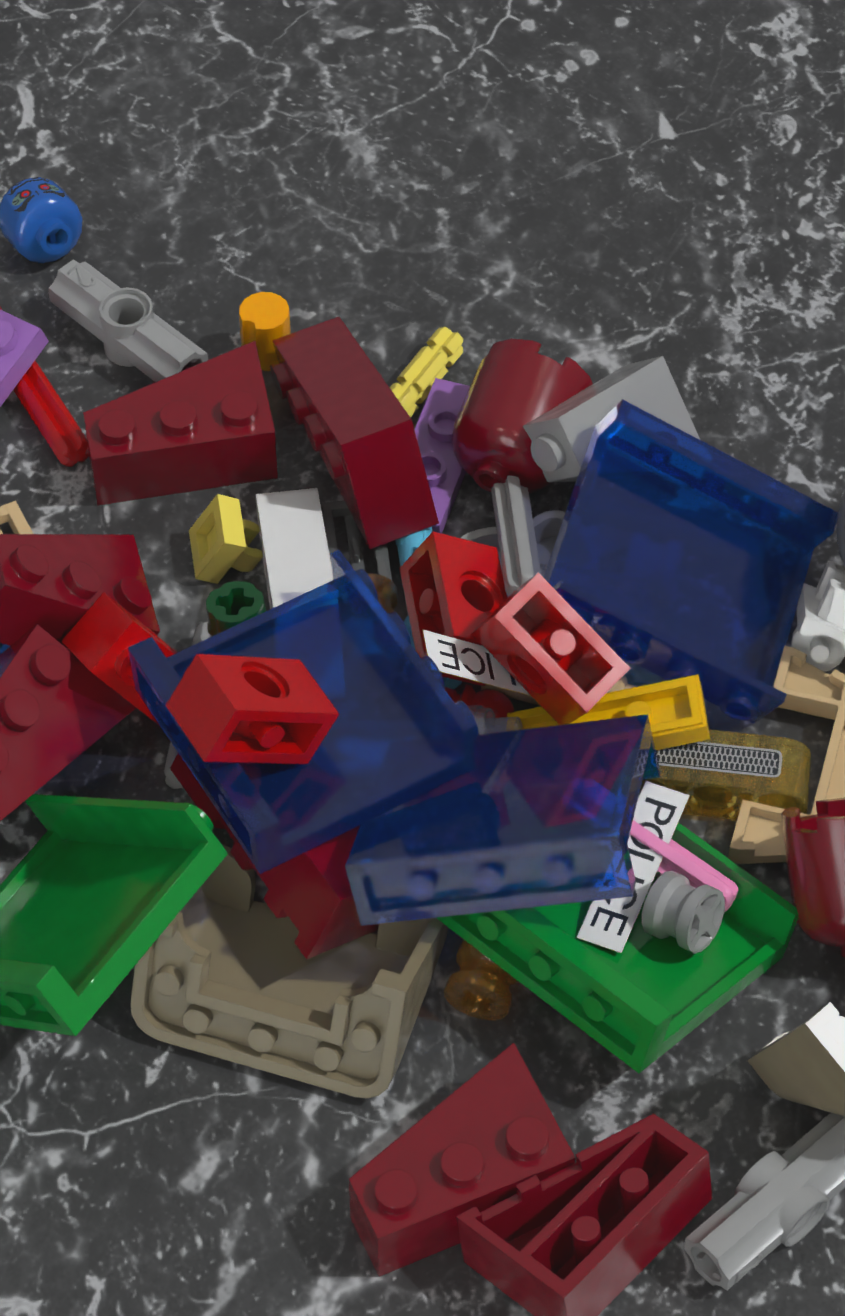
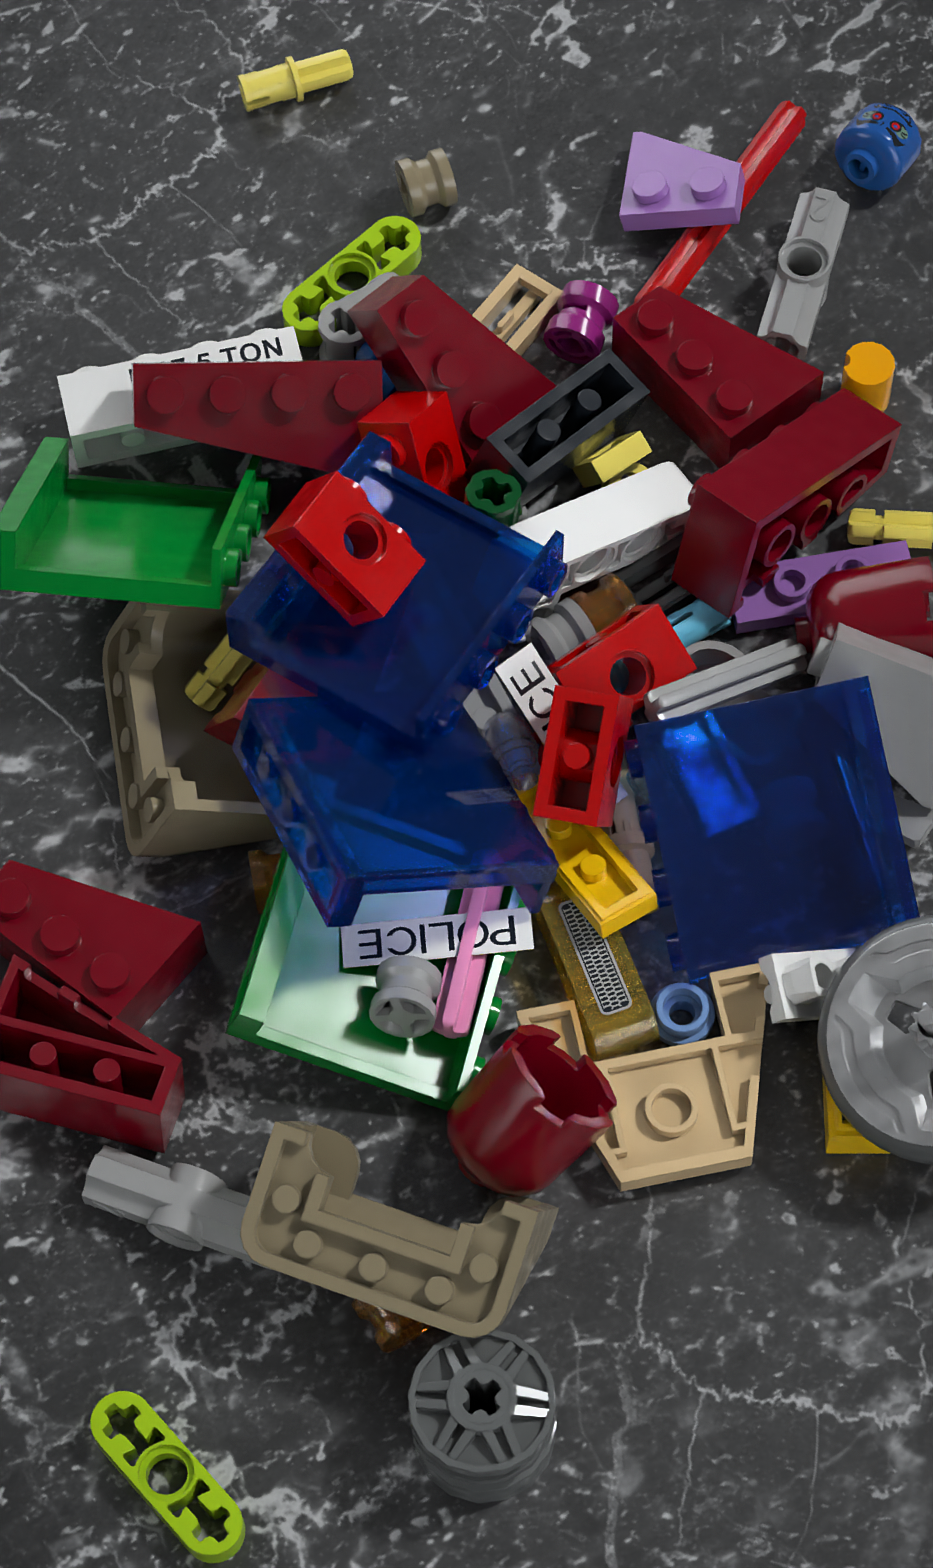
camera: 65 degrees right, 10 degrees up
(52, 493) = (579, 326): none -> magenta wheel
(176, 549) = (563, 426): none -> black brick
(236, 913) = (224, 667): none -> light yellow axle
(797, 721) = (683, 997): none -> medium blue plate

